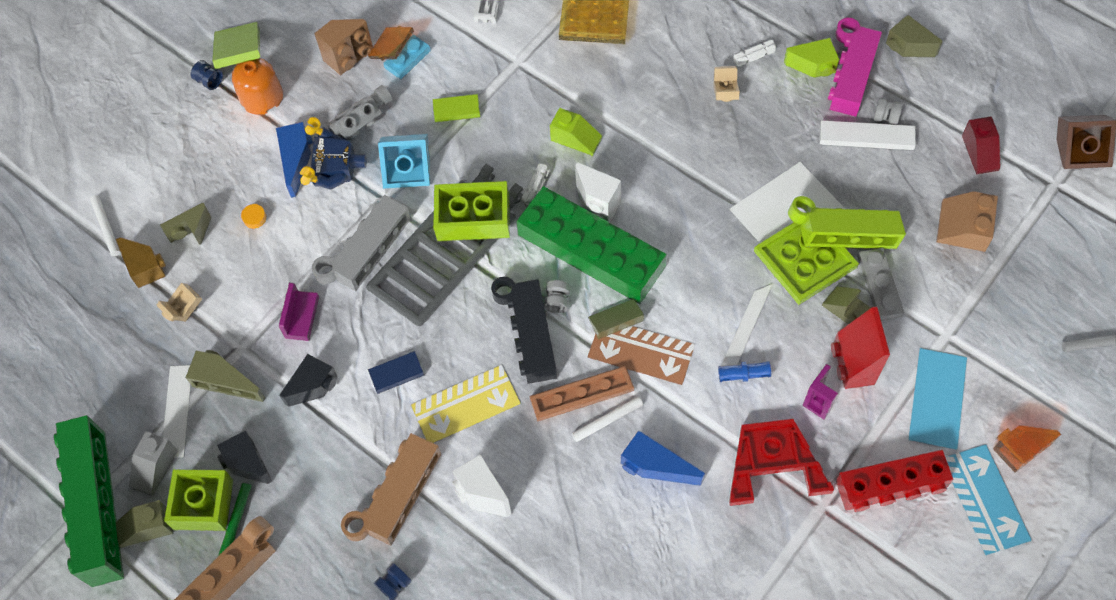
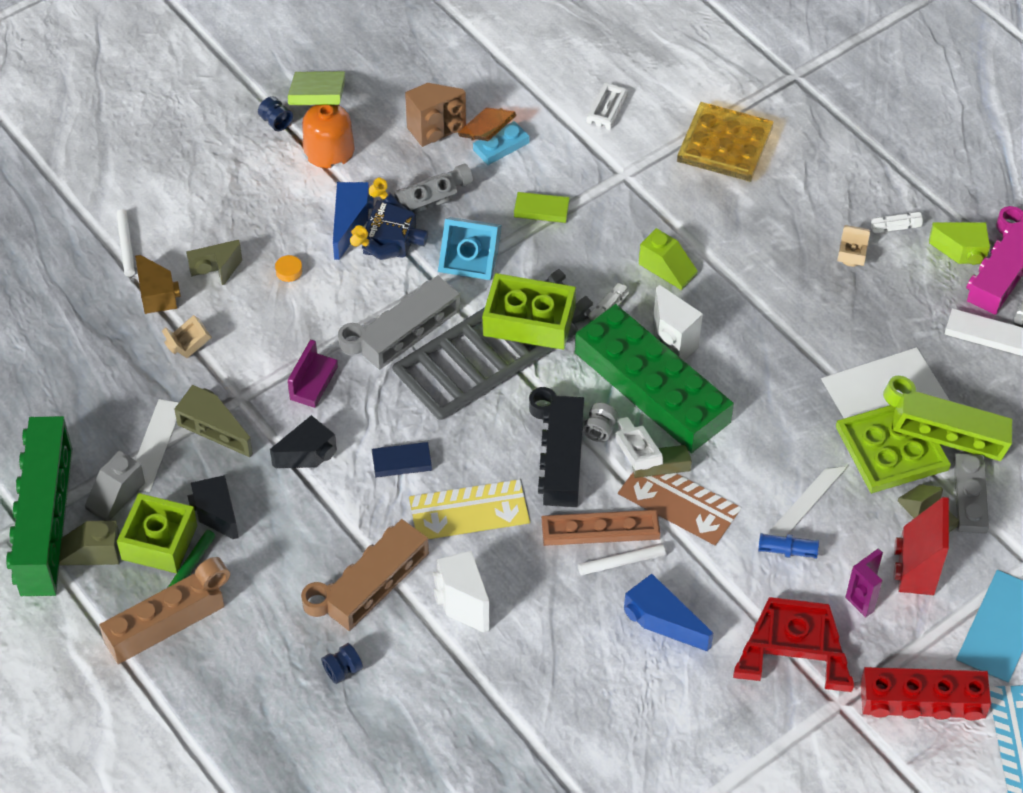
camera: 10 degrees right, 10 degrees down
(595, 312) = (637, 445): none -> white hinge

